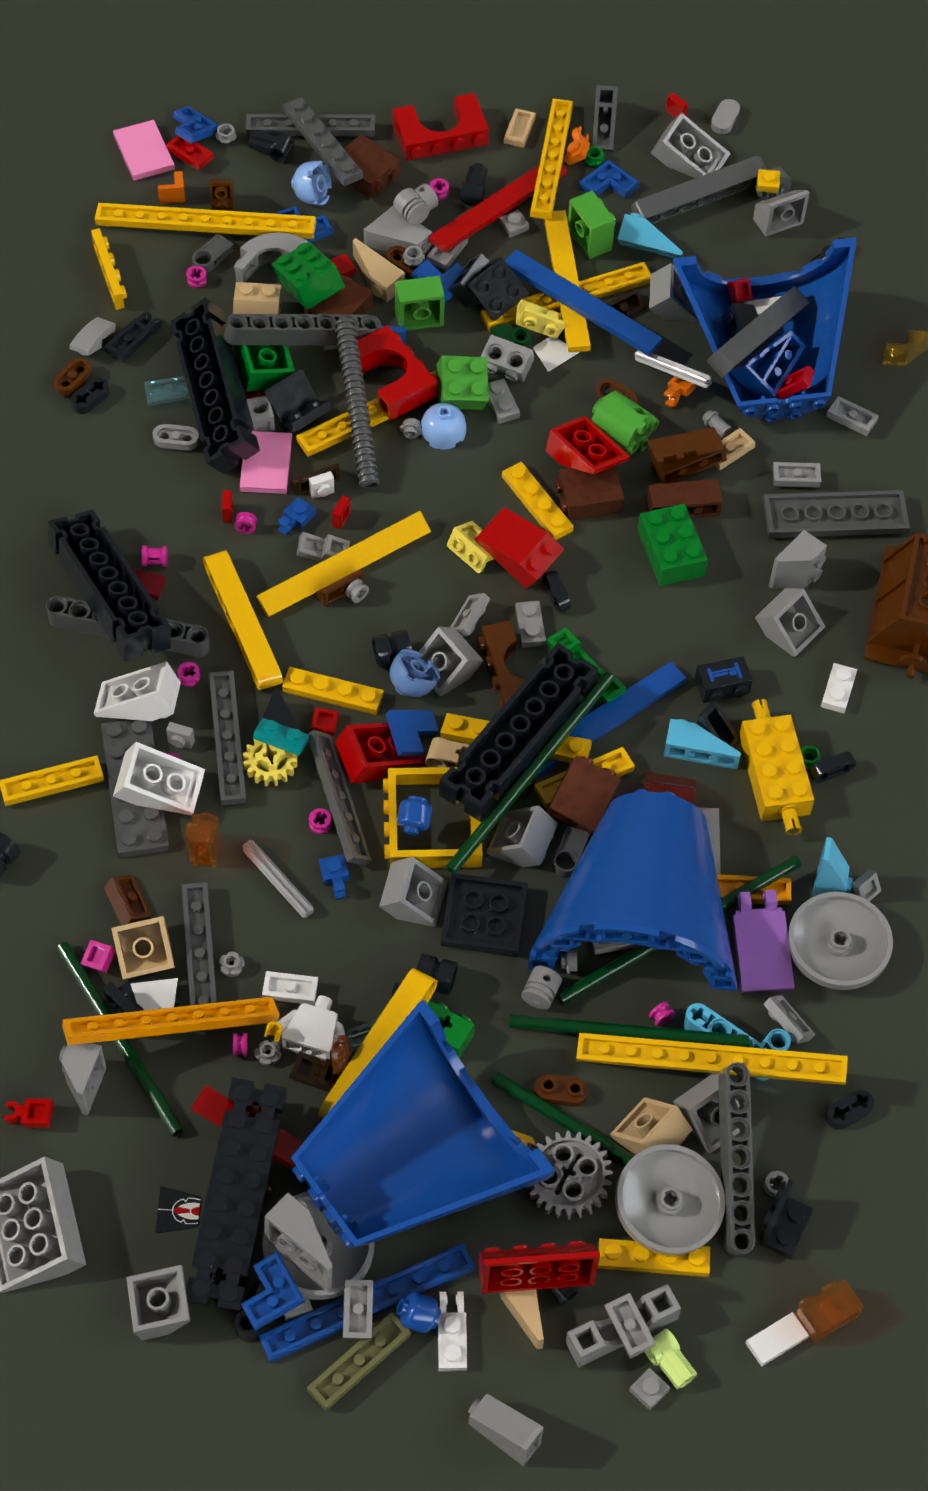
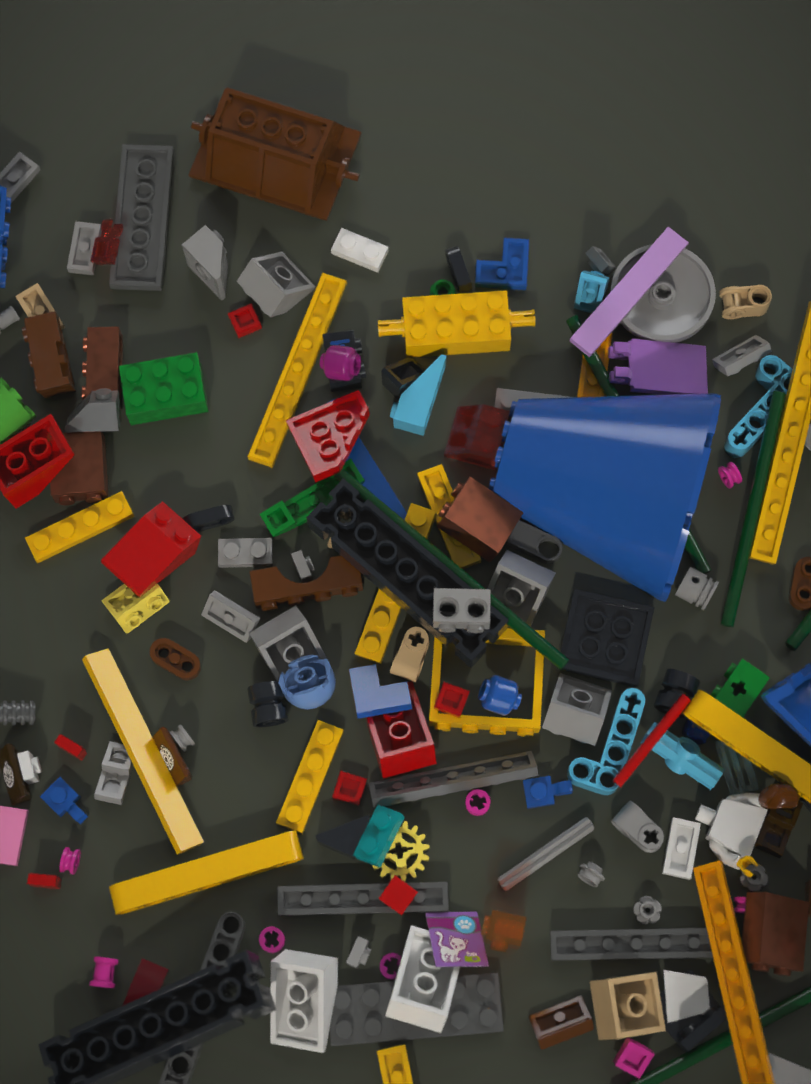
camera: 80 degrees left, 15 degrees up
(192, 798) = (456, 939): none -> sticker
(212, 1061) = (775, 932): none -> copper brick
(230, 757) = (398, 895): none -> red tile
(261, 914) = (591, 874): none -> light grey plate
(306, 951) = (634, 824): none -> light grey piece
(376, 981) = (684, 757): none -> medium azure piece
(385, 944) = (651, 740): none -> red bar
(387, 924) = (614, 740): none -> medium azure beam
(408, 782) = (451, 699): none -> red tile
(424, 581) = (176, 659): none -> reddish brown plate
(483, 762) = (461, 601): none -> light grey brick
(521, 664) = (303, 566): none -> light grey plate
(637, 493) = (96, 413): none -> dark grey slope
(646, 666) = (329, 433): none -> red plate
(710, 648) = (297, 370): none -> yellow tile
(714, 666) = (340, 363): none -> magenta head
(750, 603) = (244, 320): none -> red tile
(796, 485) = (106, 247): none -> clear red plate
(833, 904) = (628, 292): none -> lavender tile
(842, 815) = (508, 273): none -> blue tile
(847, 1016) = (739, 301): none -> tan piece

